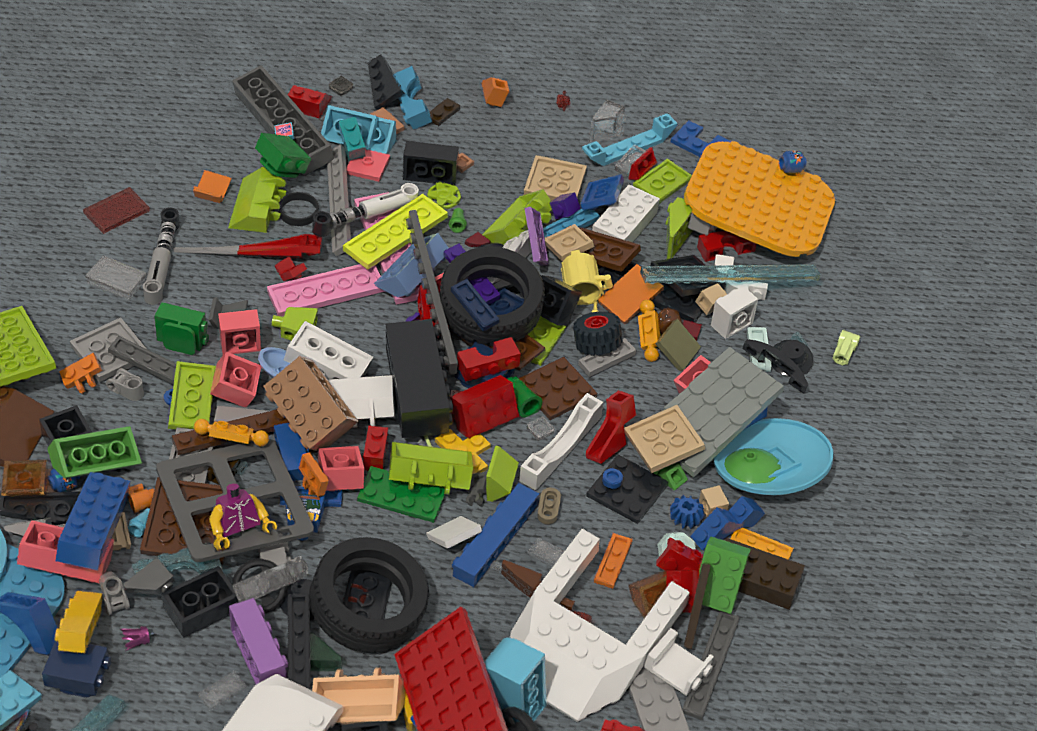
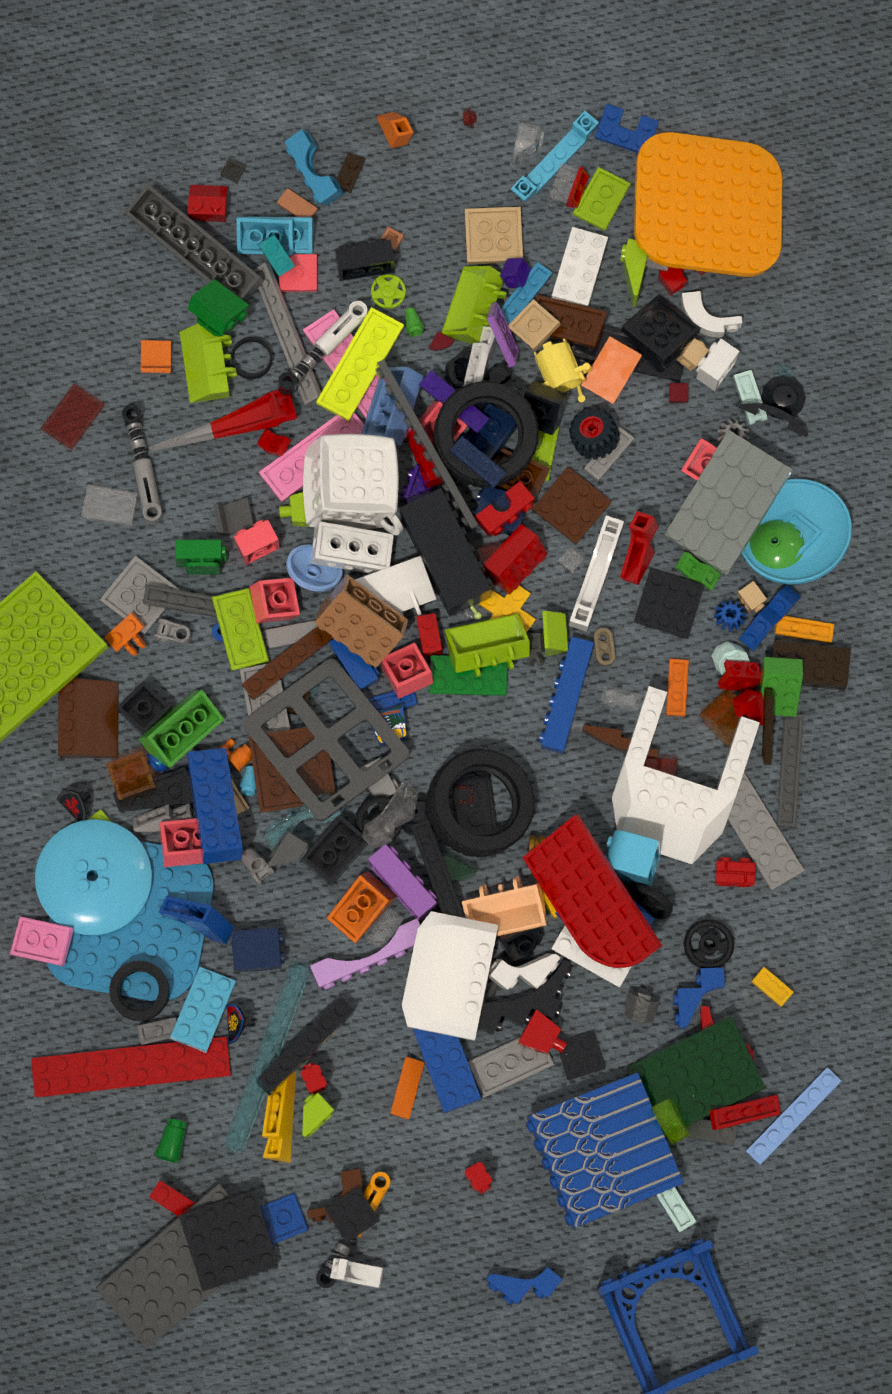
camera: 15 degrees left, 30 degrees up
(79, 622) = (244, 909): yellow brick -> none
(139, 636) = (295, 898): flat silver piece -> none
(148, 712) = (330, 970): none -> lavender arch
(206, 661) = (361, 906): none -> orange slope
(226, 431) = (297, 668): light orange plate -> none
(236, 513) = (340, 767): torso -> none
(285, 129) = (206, 272): tile -> none
(313, 478) = (386, 691): orange hinge -> none
(349, 293) = (352, 482): none -> white piece
(383, 83) = (279, 160): black wing -> none
(454, 532) = (529, 706): white tile -> none
(527, 401) = (546, 531): green plant -> none
(602, 192) = (548, 245): blue plate -> none
(612, 478) = (654, 601): blue tile -> none
(649, 330) = (641, 409): light orange plate -> none
(664, 438) = (692, 548): tan plate -> none
(666, 317) = (657, 393): reddish brown head -> none
(676, 664) = (764, 786): white panel -> none
(678, 345) = (673, 421): olive tile -> none
(729, 273) = (703, 321): clear light blue plate -> none
(792, 162) = (730, 144): blue head -> none
(846, 345) = (832, 368): yellowish green piece -> none

